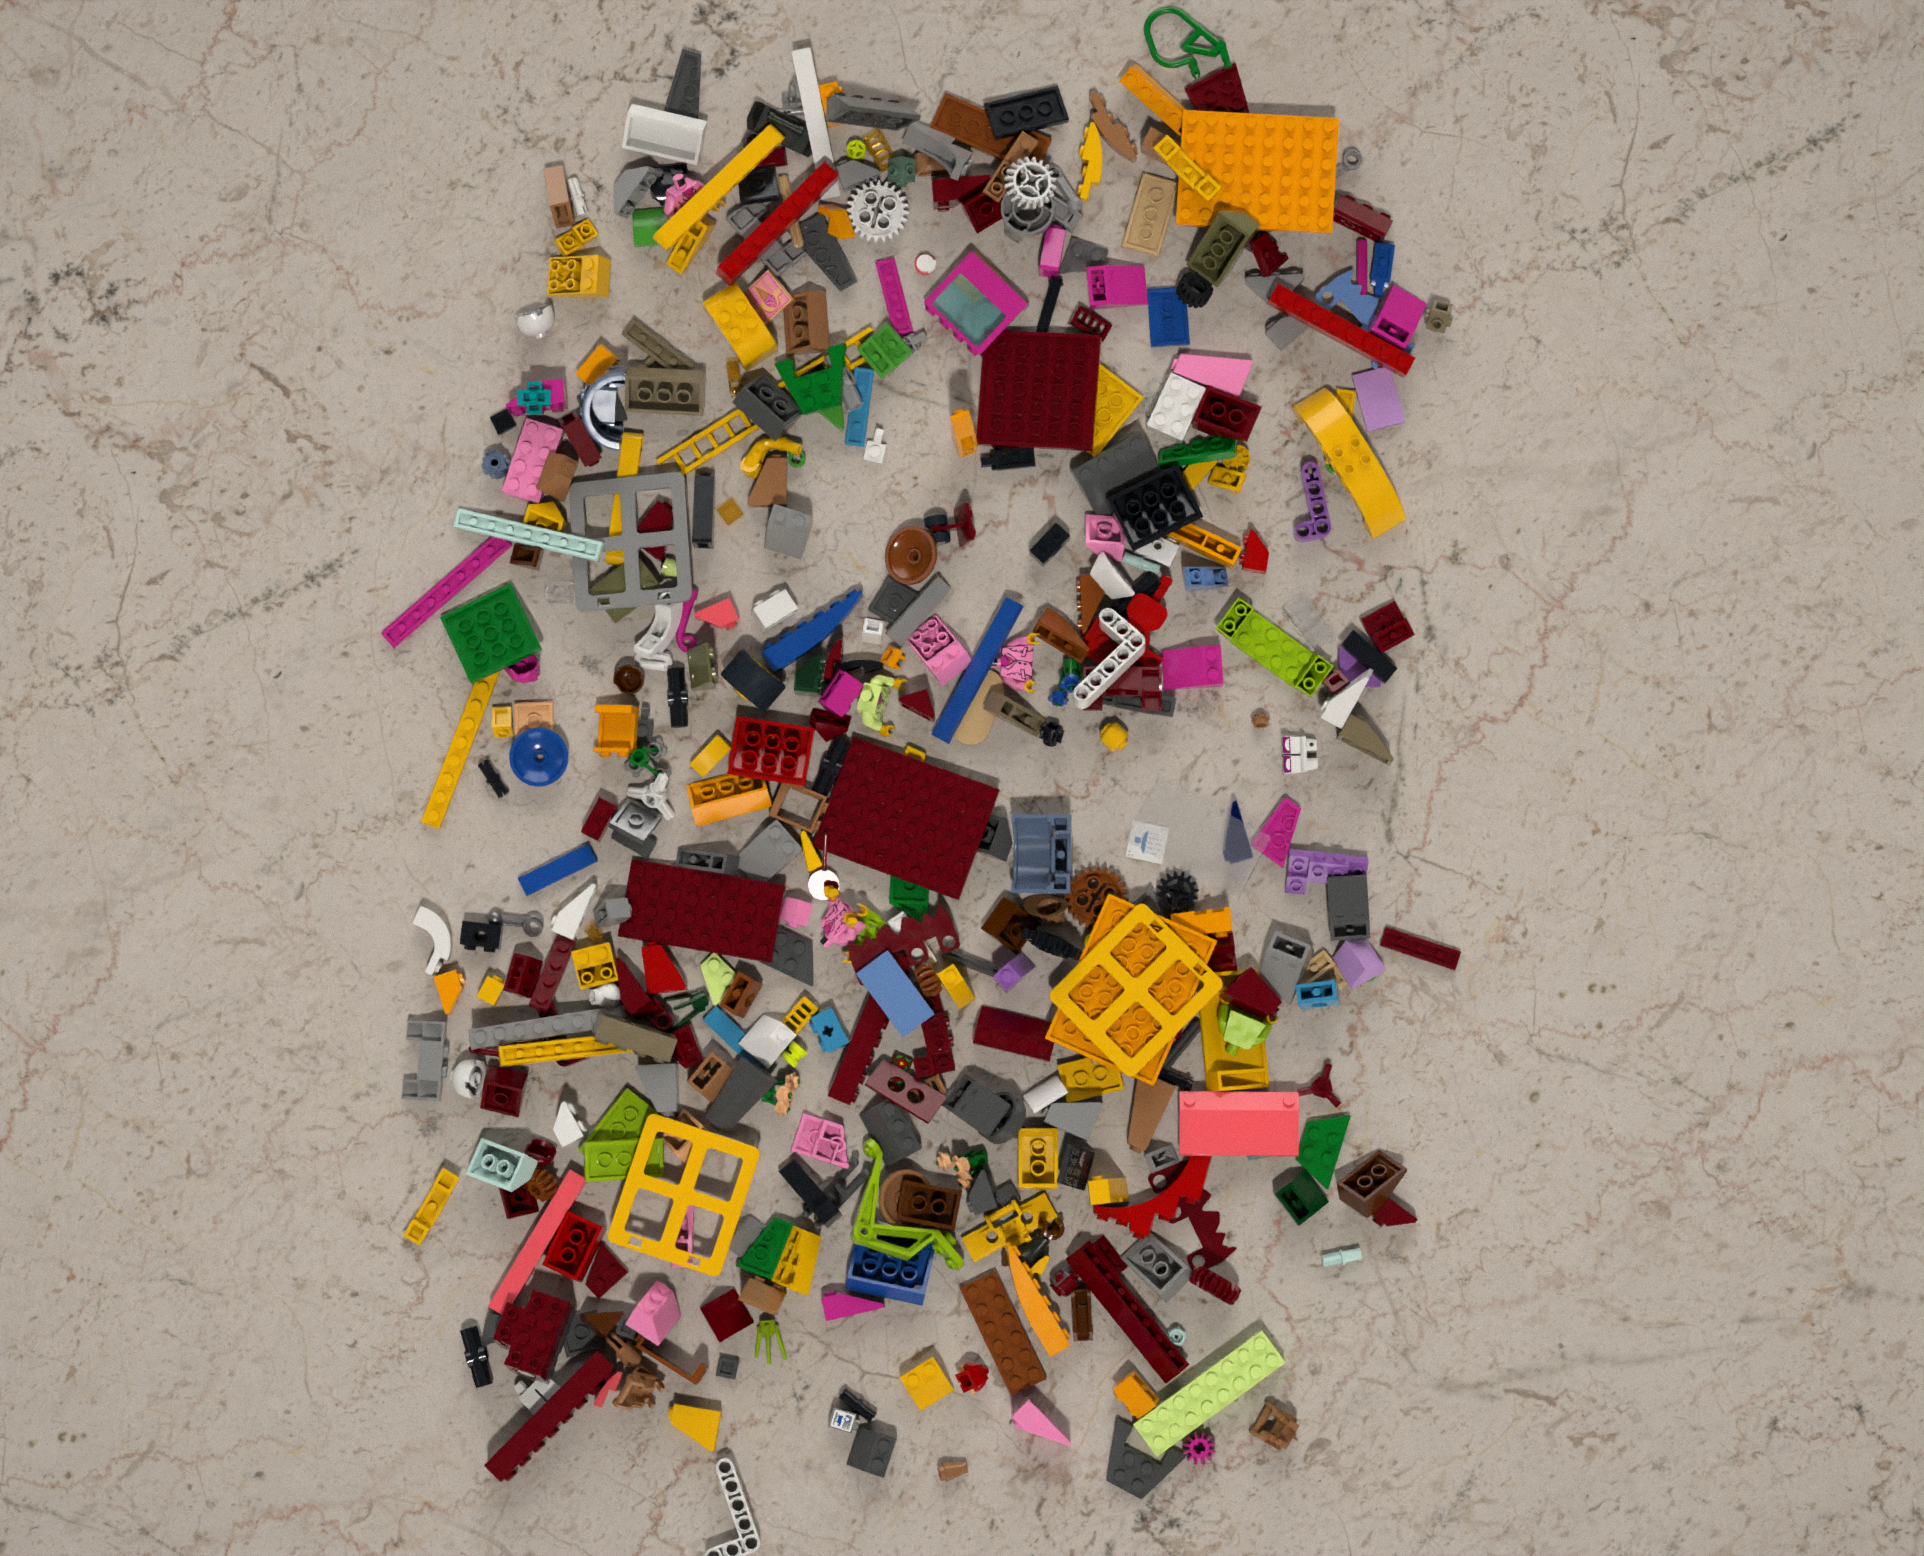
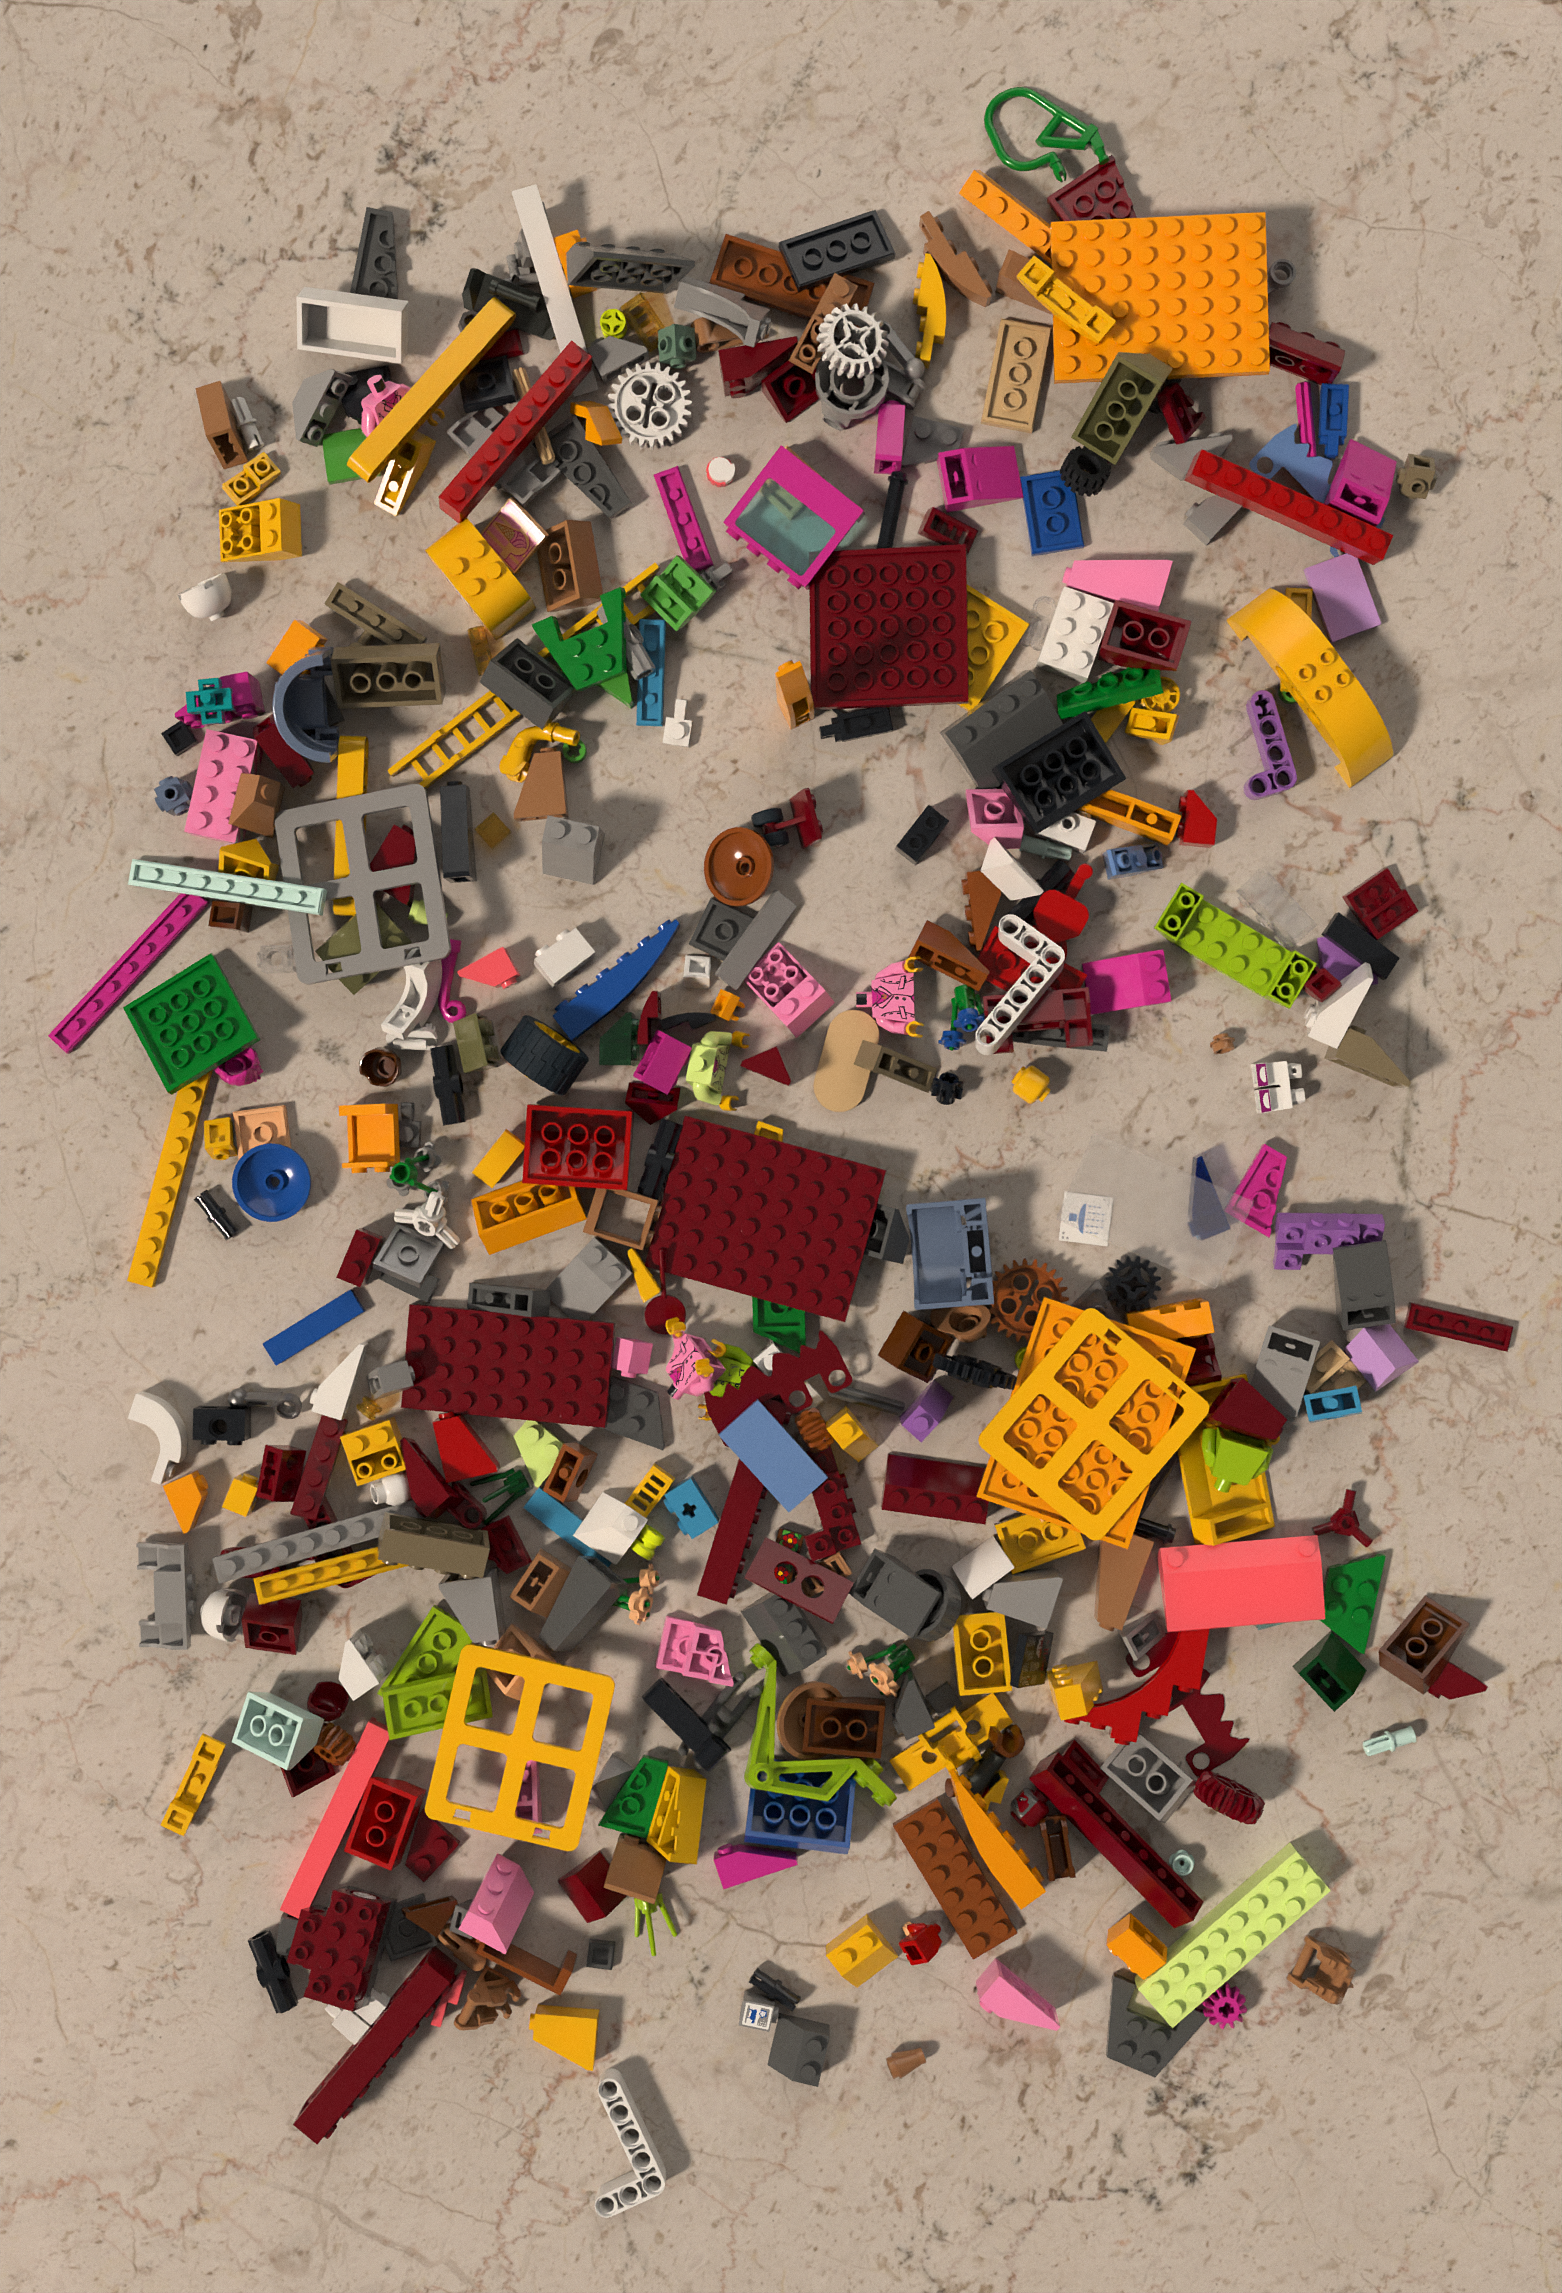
camera: 10 degrees left, 5 degrees up
(977, 670) = (841, 1012): blue tile -> none

